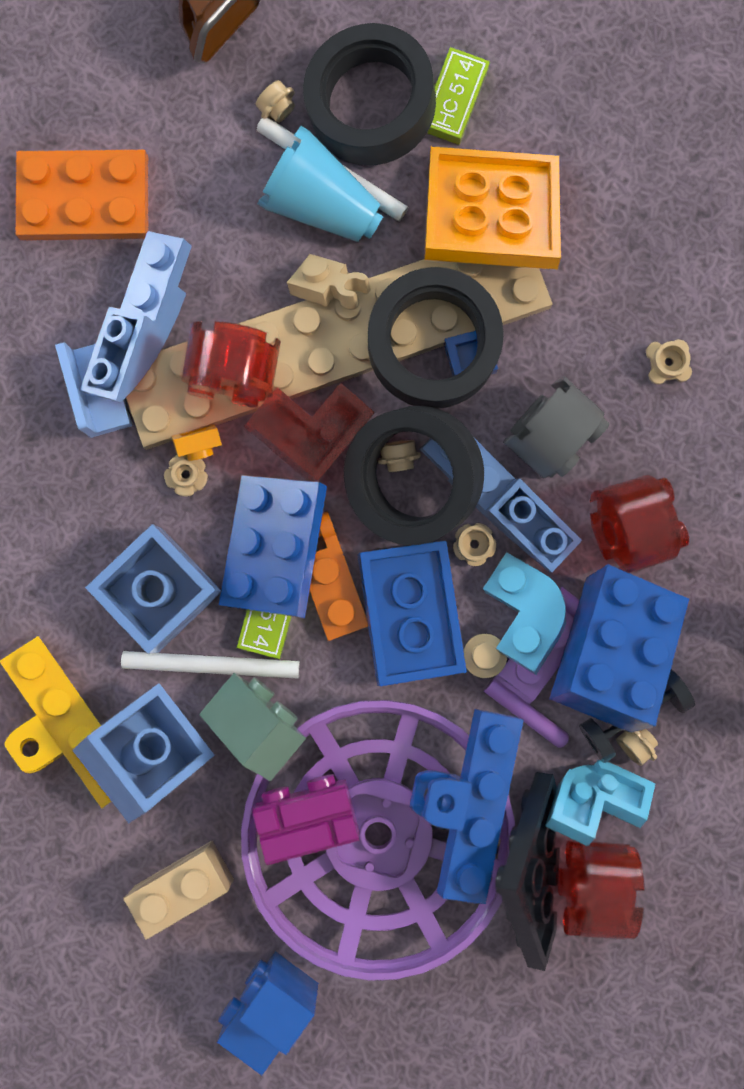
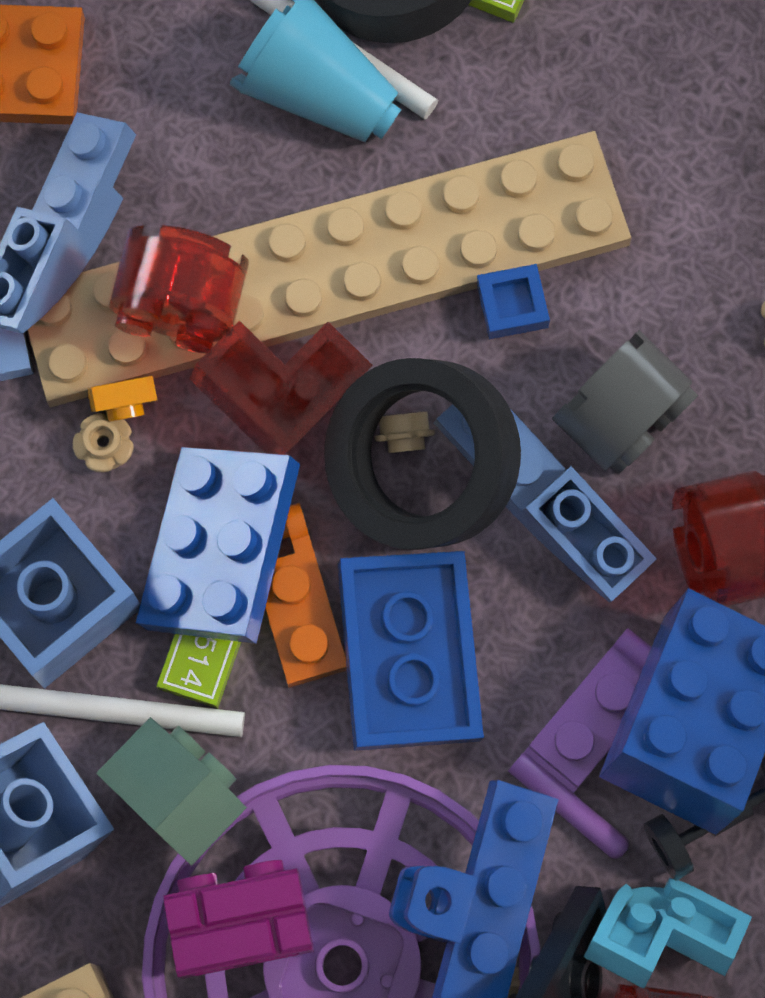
camera: 10 degrees right, 10 degrees down
(325, 279) = (314, 188): tan plate -> none
(440, 285) = (473, 201): black tyre -> none
(482, 535) = (505, 544): tan plate -> none
(482, 657) = (511, 718): tan plate -> none
(493, 208) = (553, 105): light orange plate -> none
(539, 611) = (590, 652): medium azure plate -> none
(638, 746) = (728, 858): tan plate -> none

